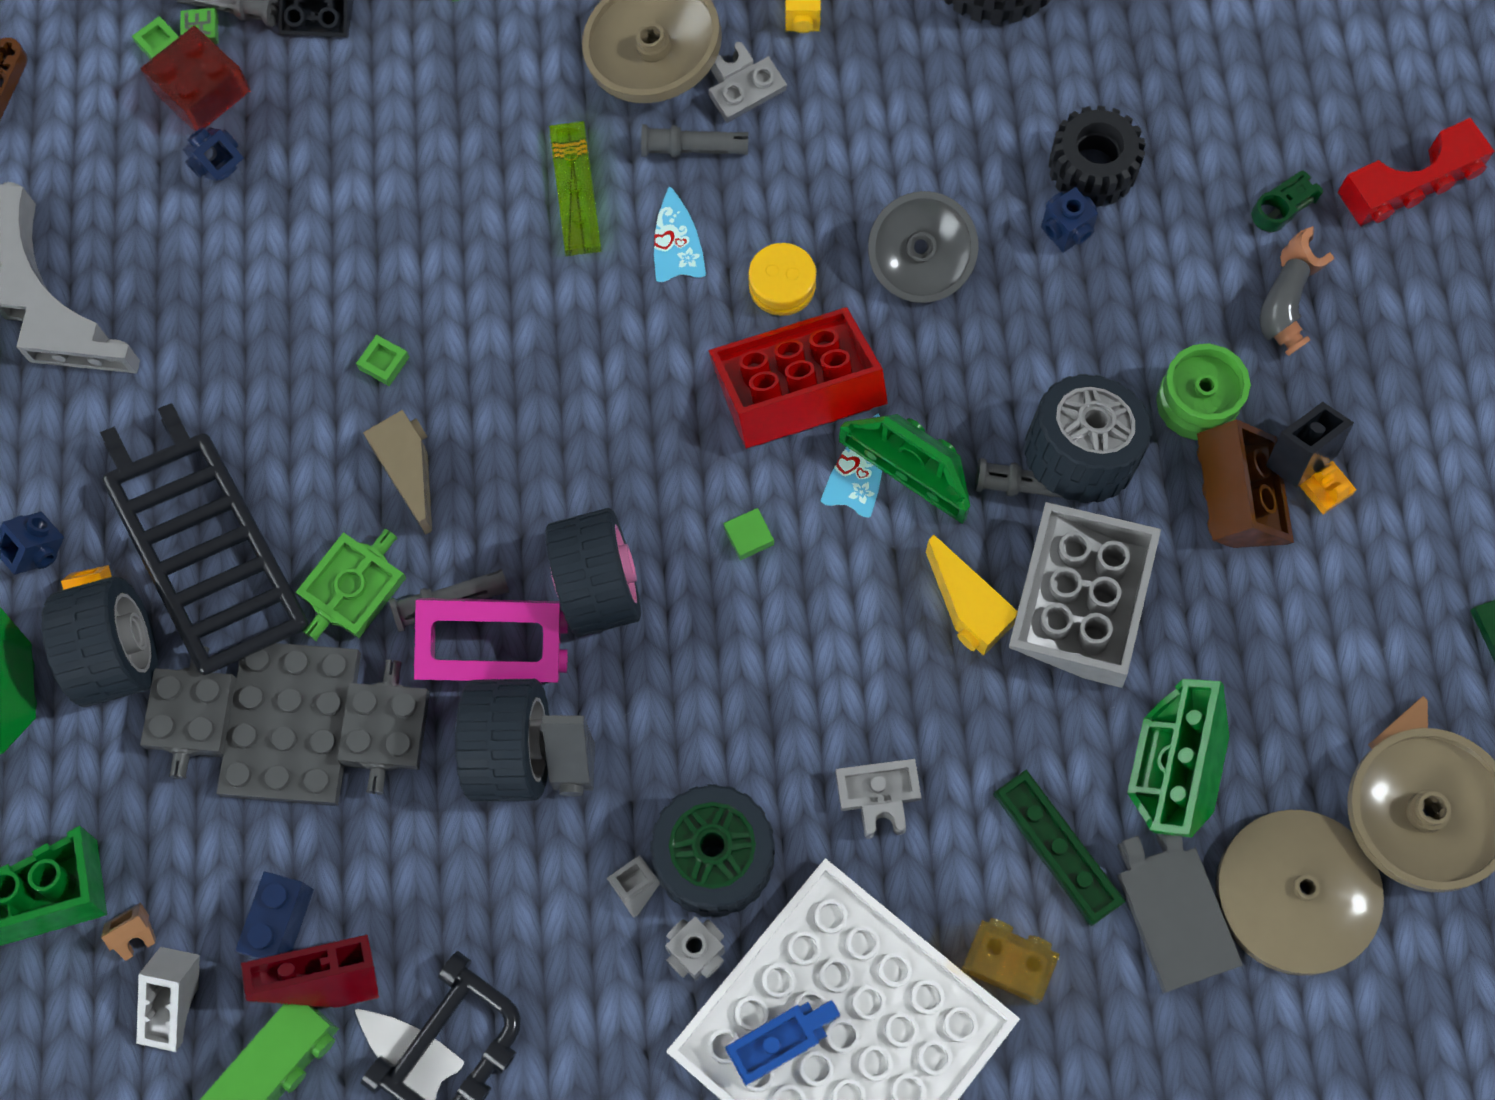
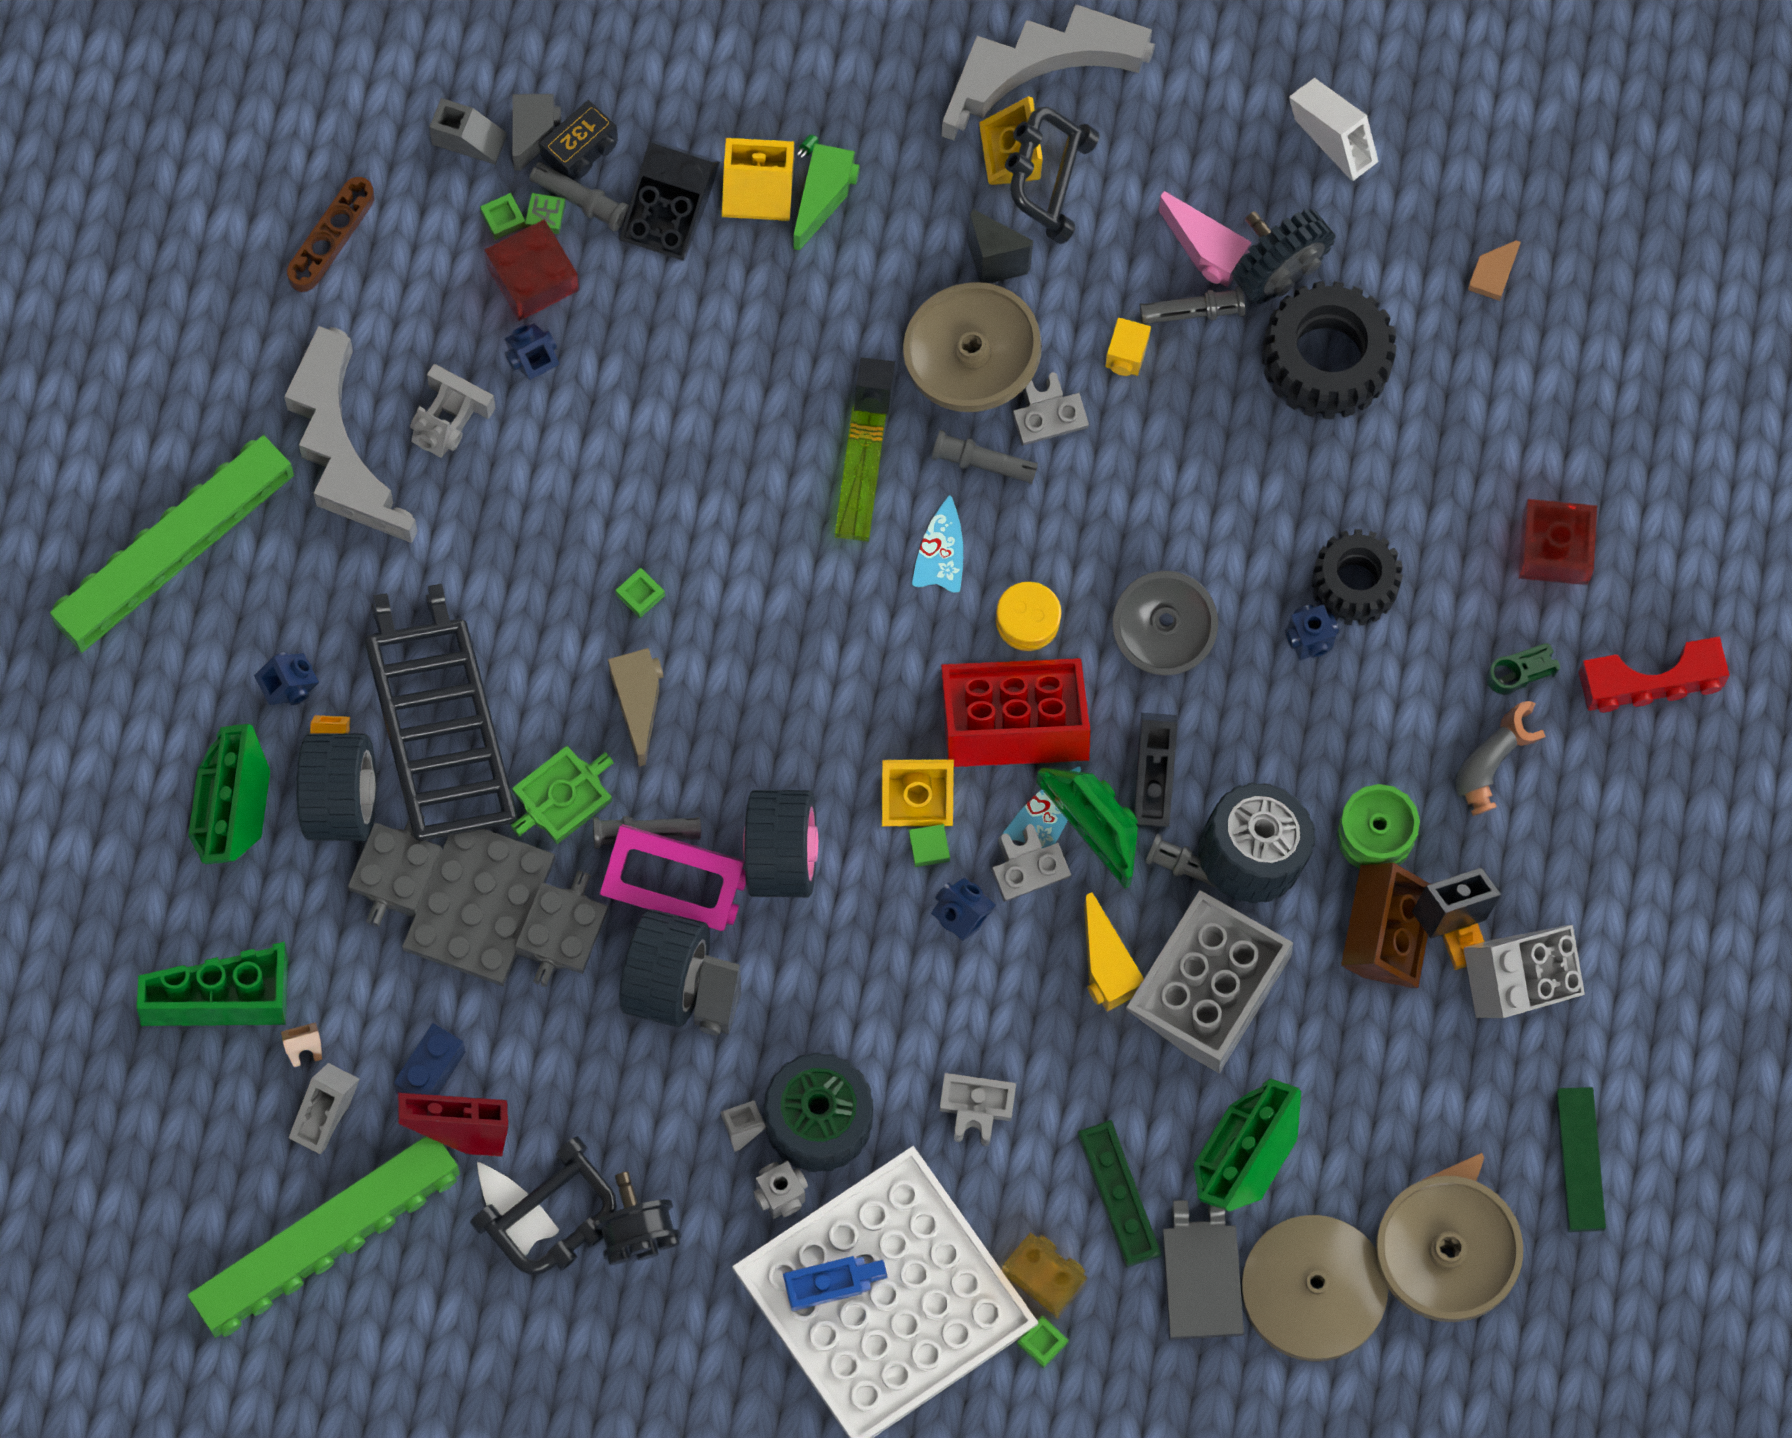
camera: 10 degrees right, 0 degrees up
(148, 219) = (458, 399): none -> light grey tile
(549, 1040) = (636, 1227): none -> black wheel
(565, 100) = (874, 385): none -> black brick
(721, 482) = (917, 792): none -> yellow slope
(803, 588) = (962, 908): none -> dark blue brick
(857, 526) = (1028, 865): none -> light grey plate
(957, 392) = (1155, 768): none -> black slope
(1029, 1038) = (1042, 1342): none -> bright green tile
(1279, 72) = (1557, 542): none -> clear red brick
(1399, 497) = (1523, 972): none -> light grey slope

